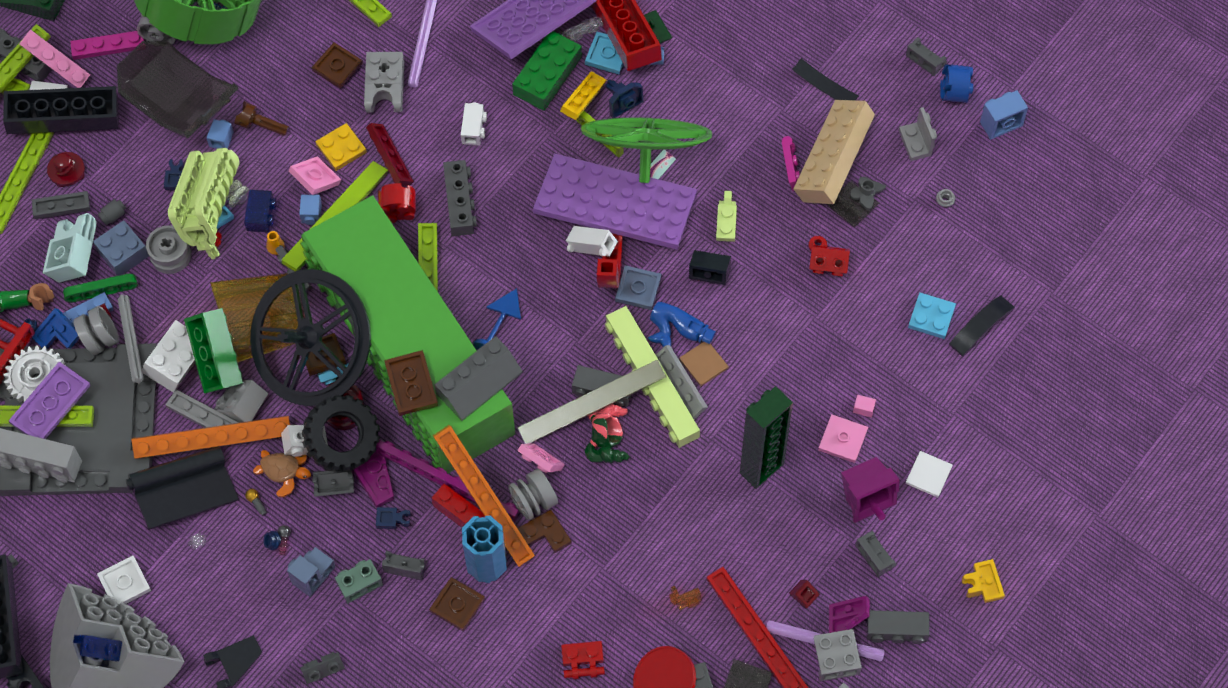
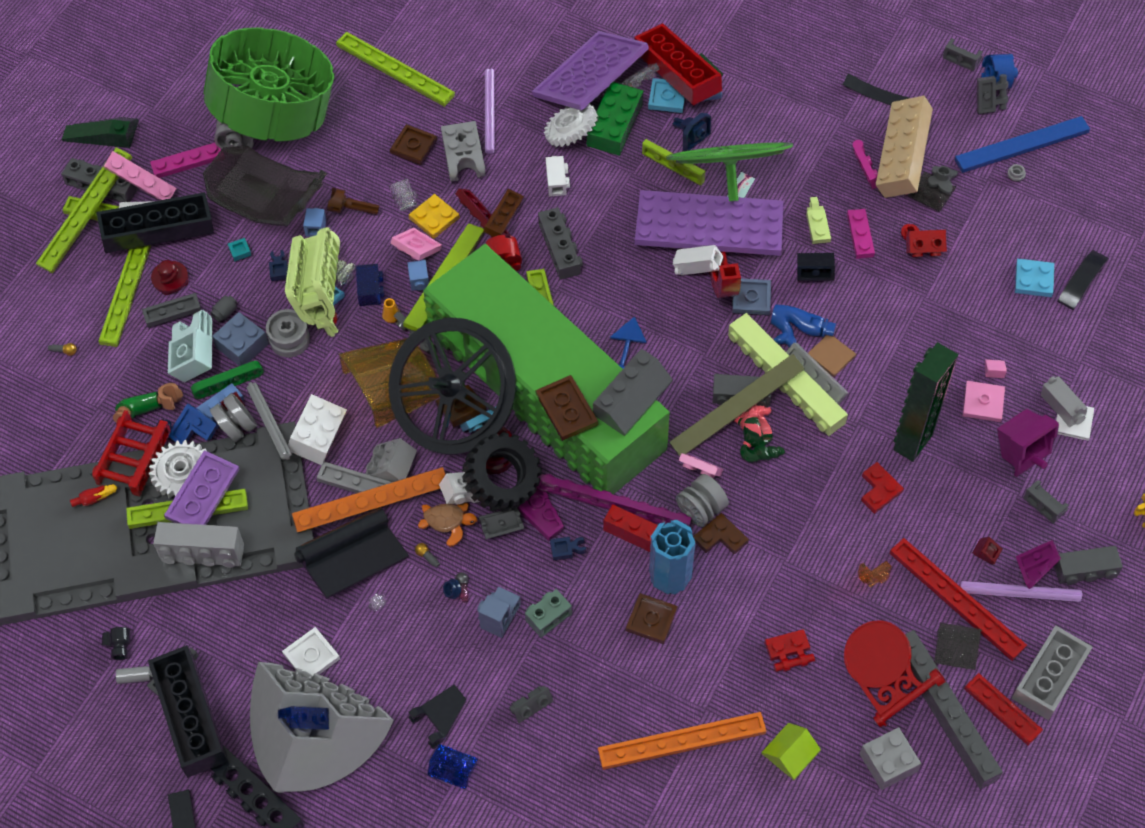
camera: 10 degrees left, 5 degrees down
(140, 151) = (239, 249): none -> teal plate
(213, 350) = (356, 415): green brick -> none
(314, 119) = (403, 195): none -> clear brick
(404, 566) = (589, 591): dark grey hinge -> none
(408, 157) = (503, 213): none -> reddish brown plate
(482, 493) = (652, 497): orange plate -> none
(498, 72) = (570, 125): none -> white gear
(583, 95) = (656, 133): yellow plate -> none
(719, 511) = (884, 488): none -> red plate
(767, 238) = (860, 233): none -> dark pink plate
(837, 655) = (1039, 601): light grey bracket -> none
(919, 137) = (979, 123): light grey bracket -> none
(922, 453) = (1064, 401): none -> light grey brick
(936, 104) = (987, 93): none -> dark grey plate
(961, 167) = (1022, 144): none -> blue tile
(1003, 114) = (1050, 91): medium blue brick -> none

